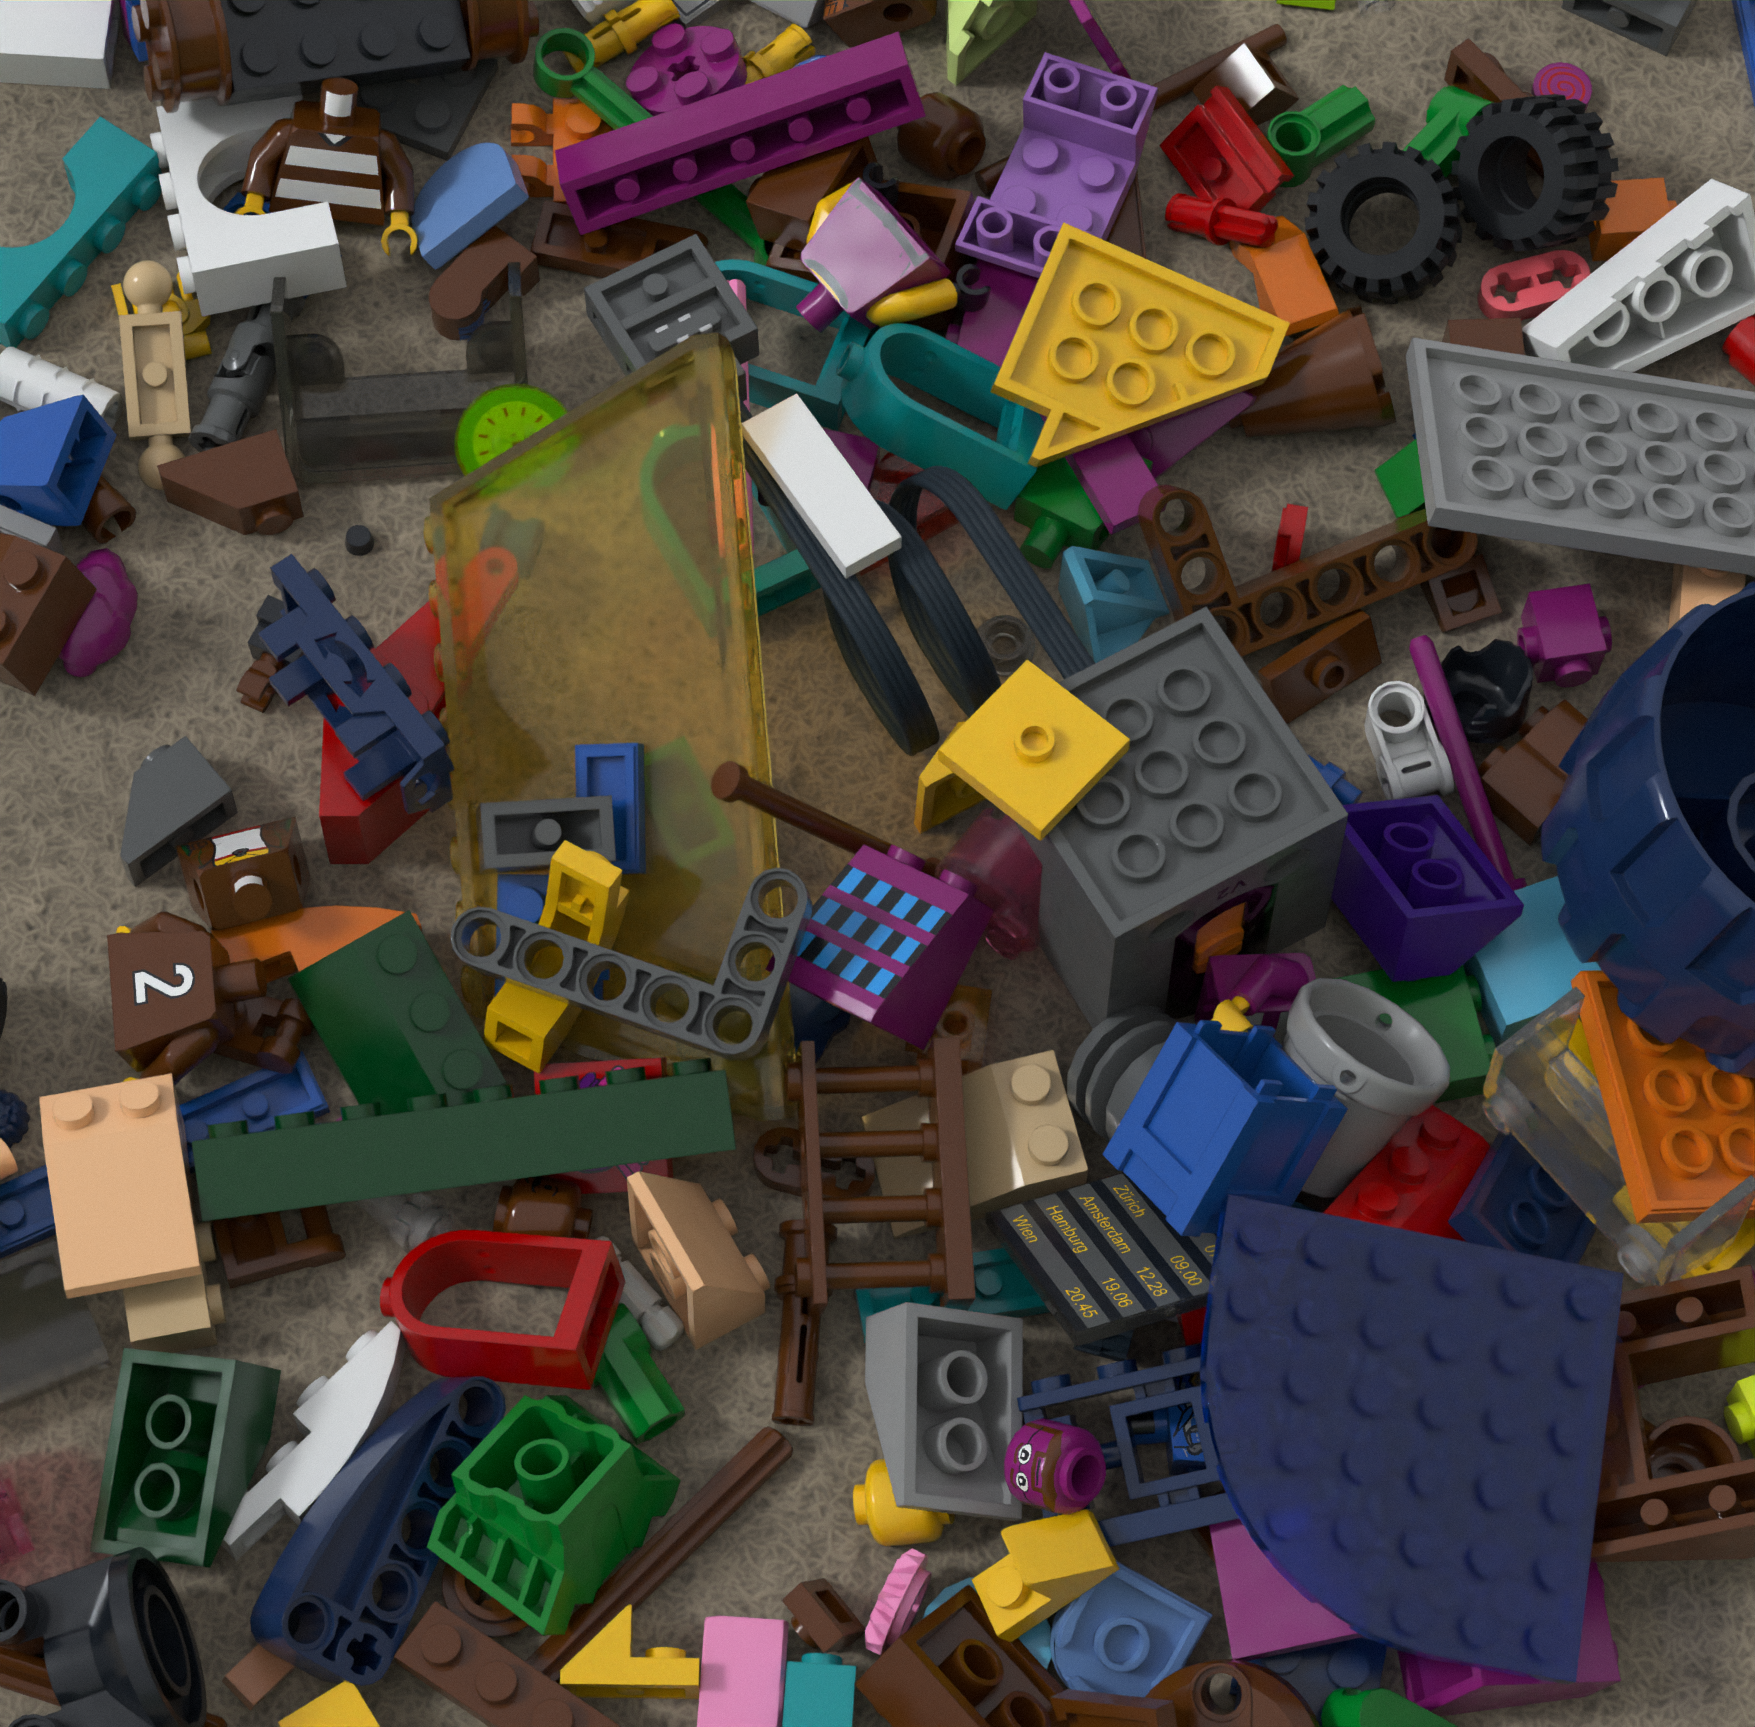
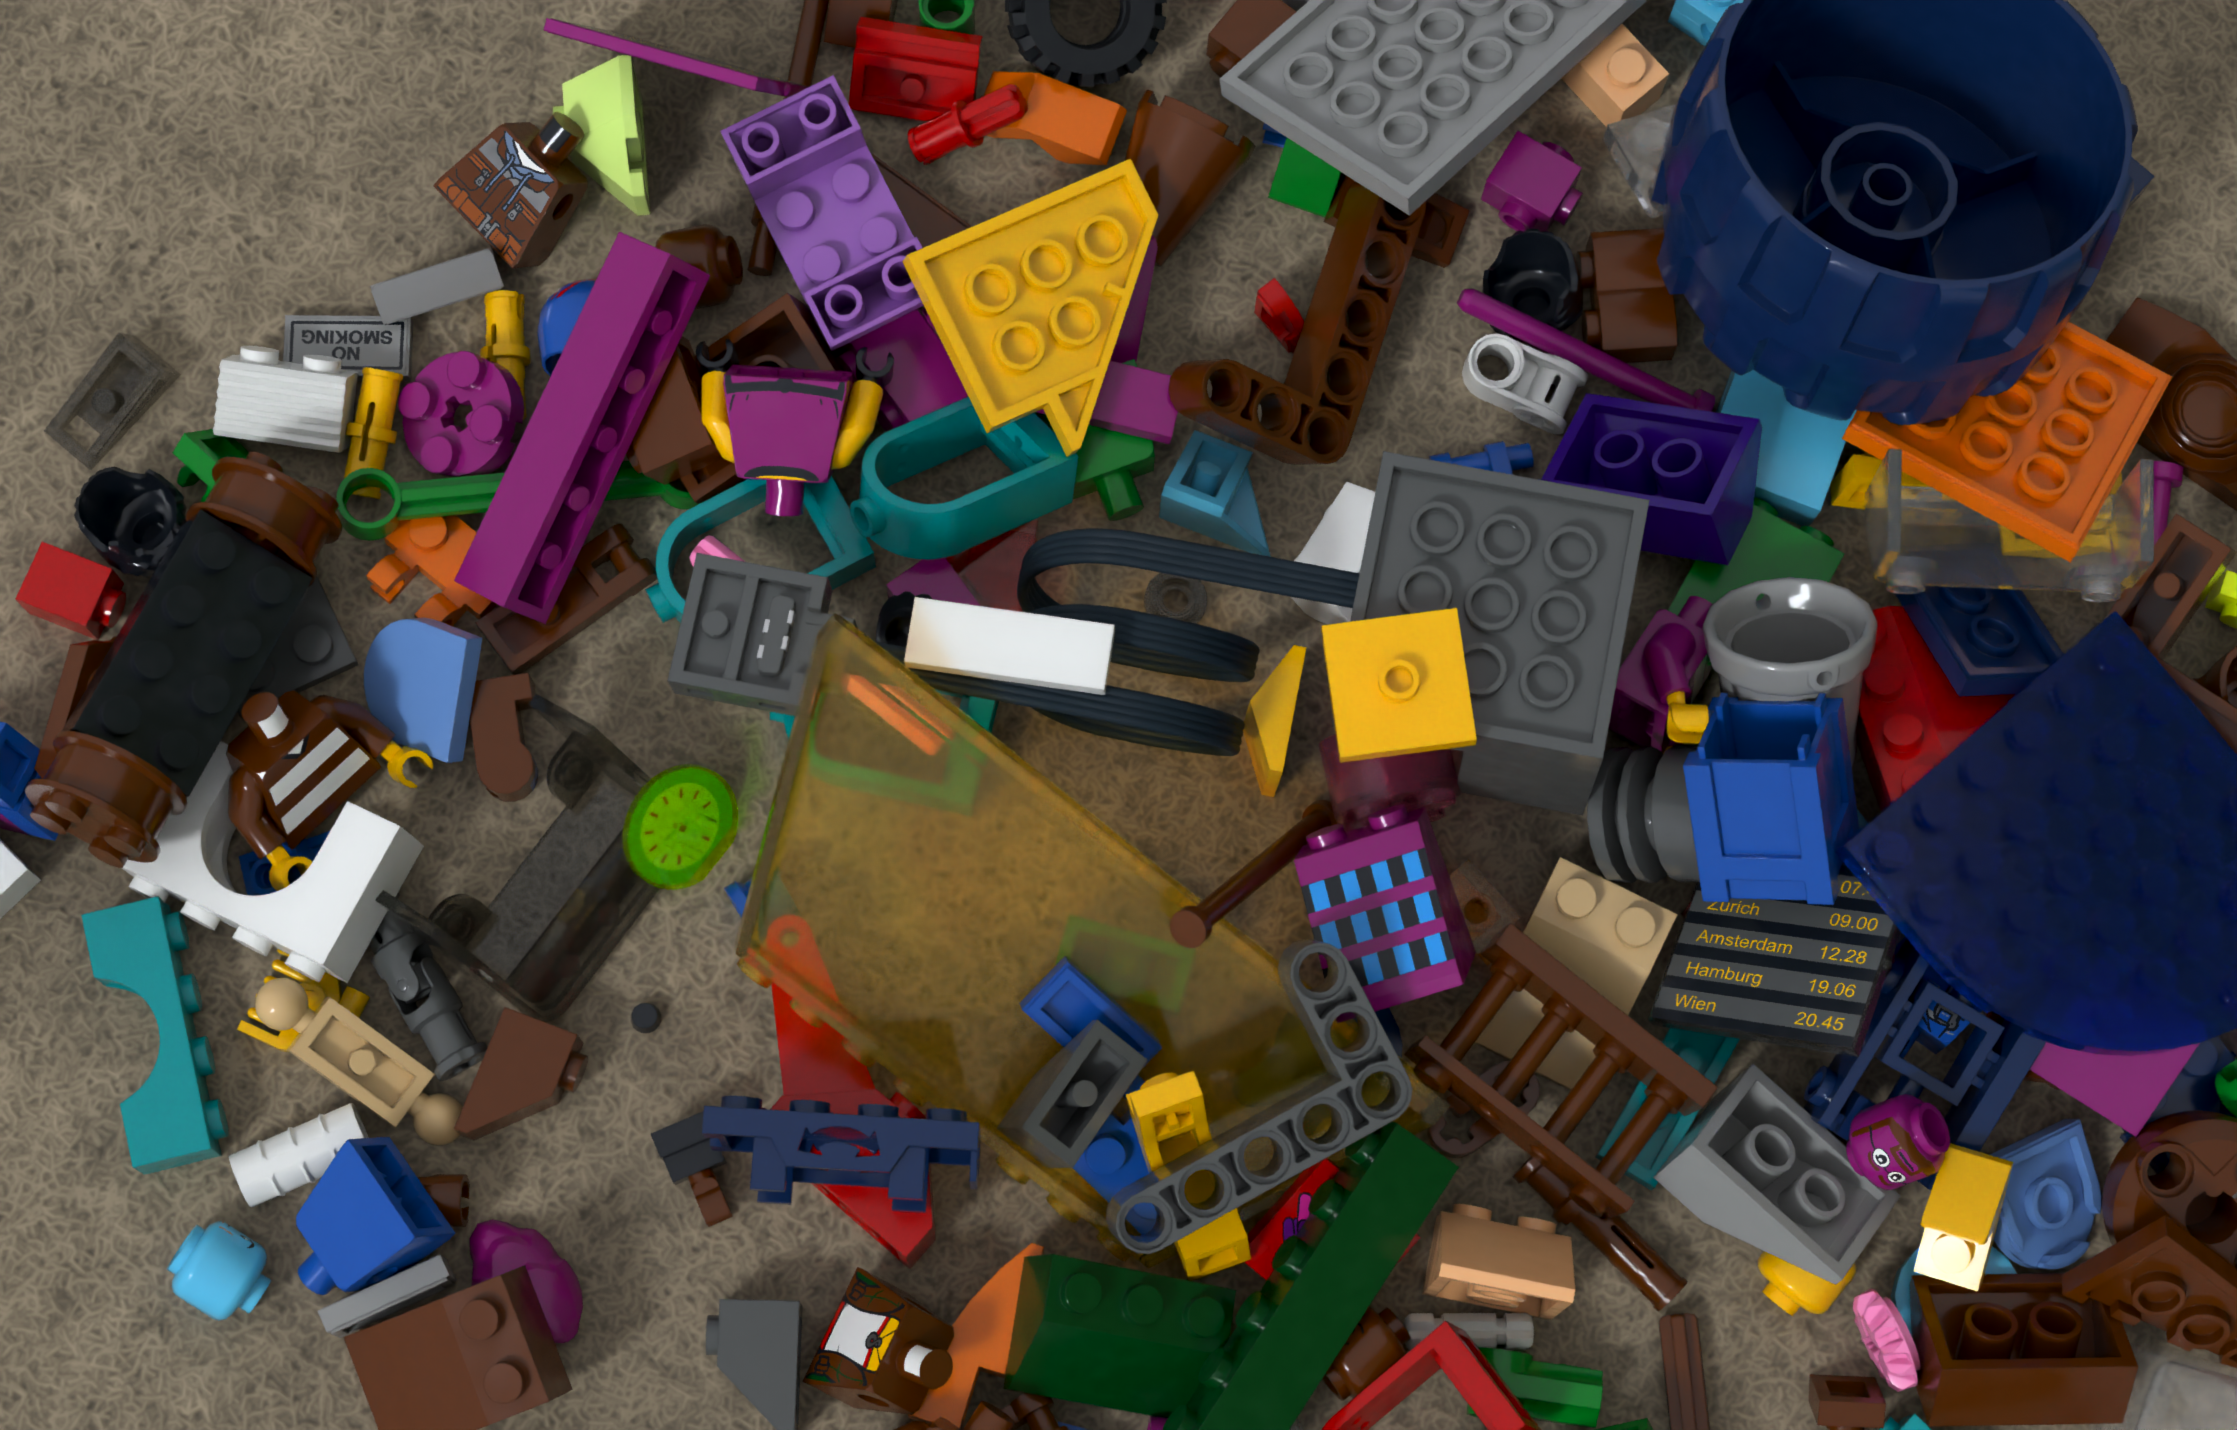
camera: 50 degrees left, 10 degrees up
(1321, 665) = (1403, 384): reddish brown plate -> none

